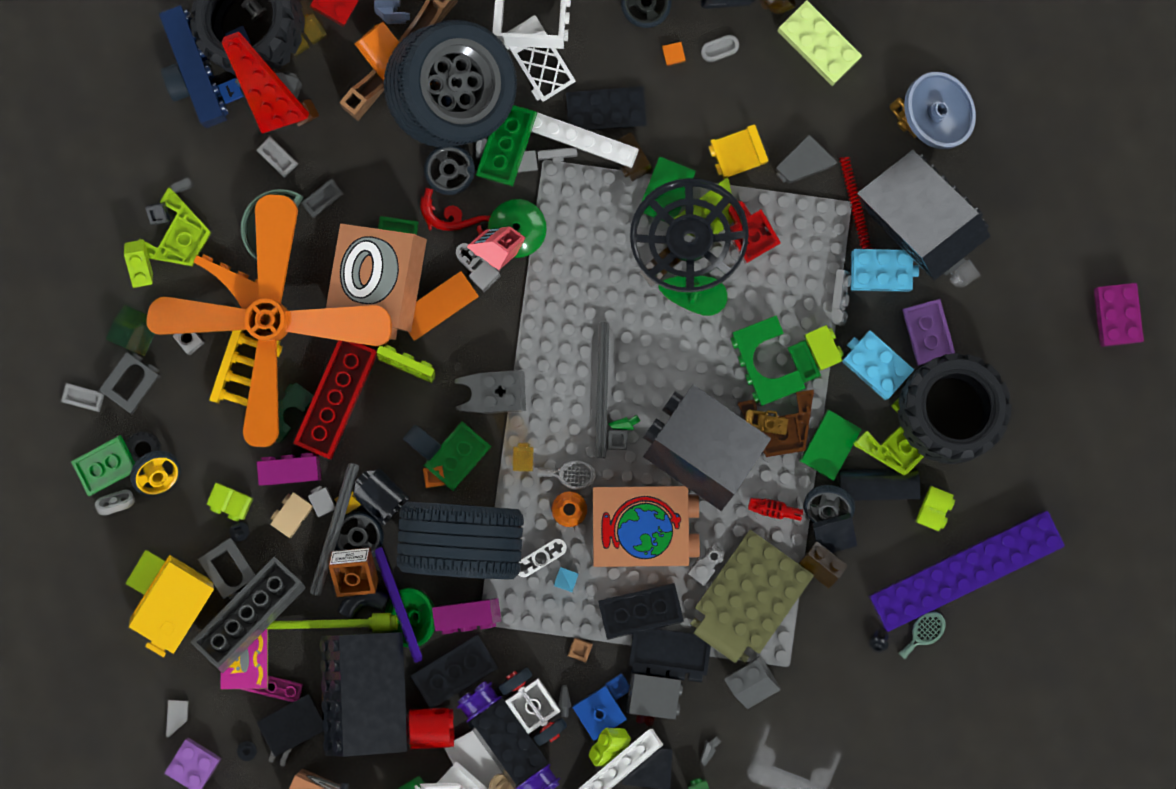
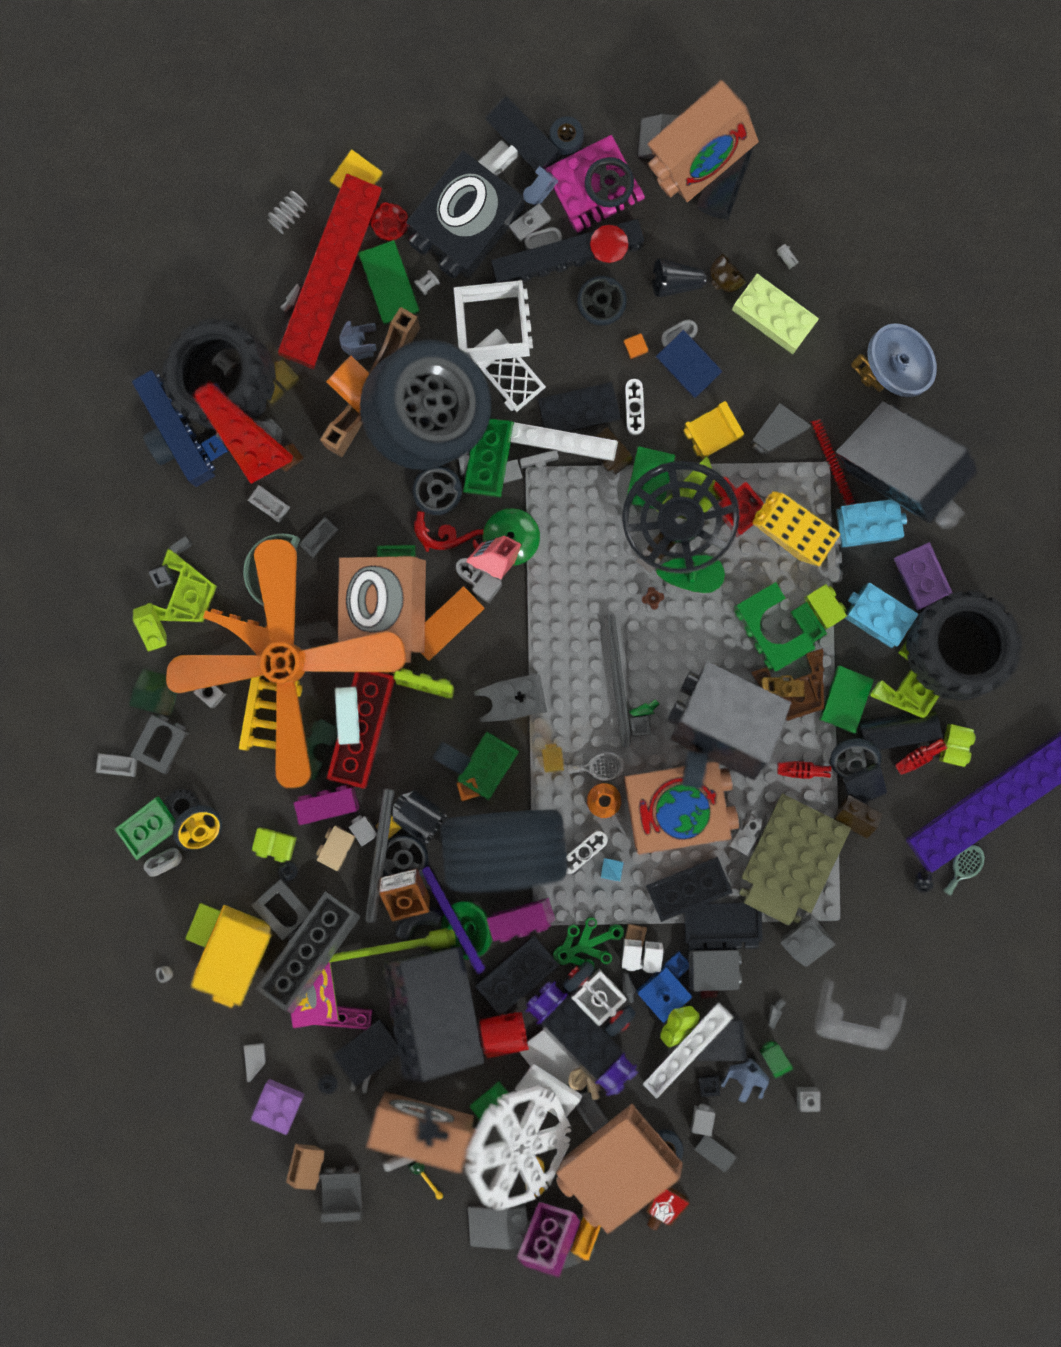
camera: 10 degrees left, 0 degrees up
(99, 615) = (164, 973): none -> light grey hinge
(324, 383) = (347, 715): none -> light aqua beam
(527, 651) = (585, 945): none -> green plant
(593, 673) = (651, 959): none -> white piece
(650, 317) = (652, 593): none -> copper plate
(659, 100) = (629, 393): none -> white beam
(662, 490) = (694, 769): none -> black wheel
(724, 80) = (688, 364): none -> dark blue tile
(803, 264) = (795, 529): none -> yellow slope
(895, 514) = (920, 756): none -> red hinge

